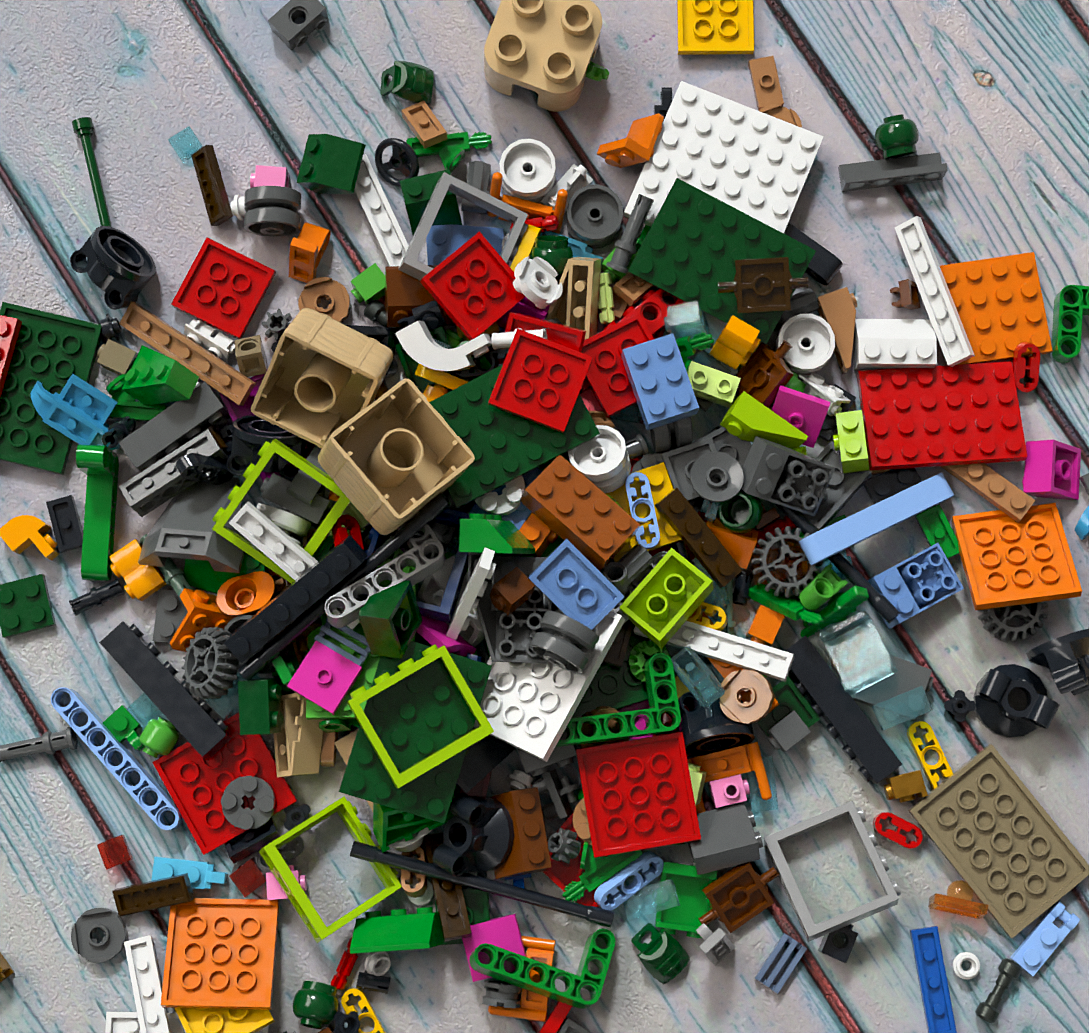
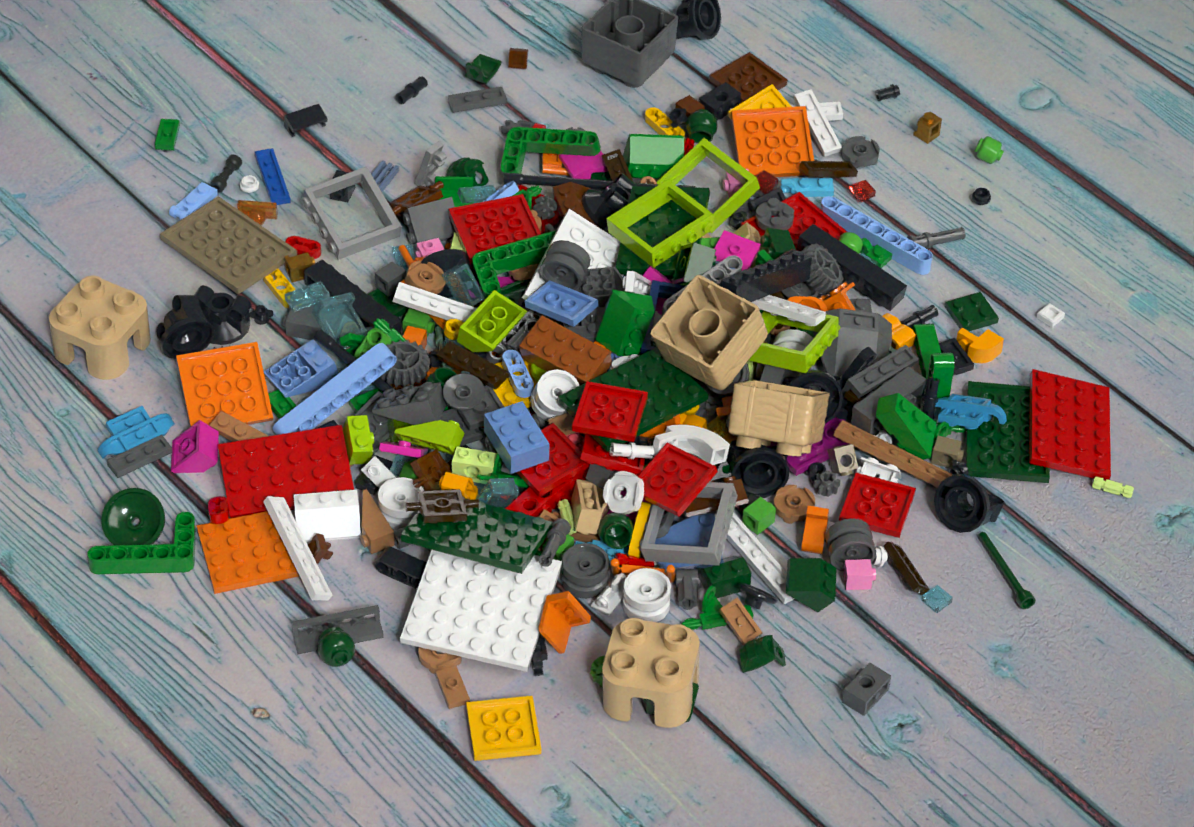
camera: 170 degrees right, 35 degrees down
(511, 591) = (604, 293): reddish brown brick -> none

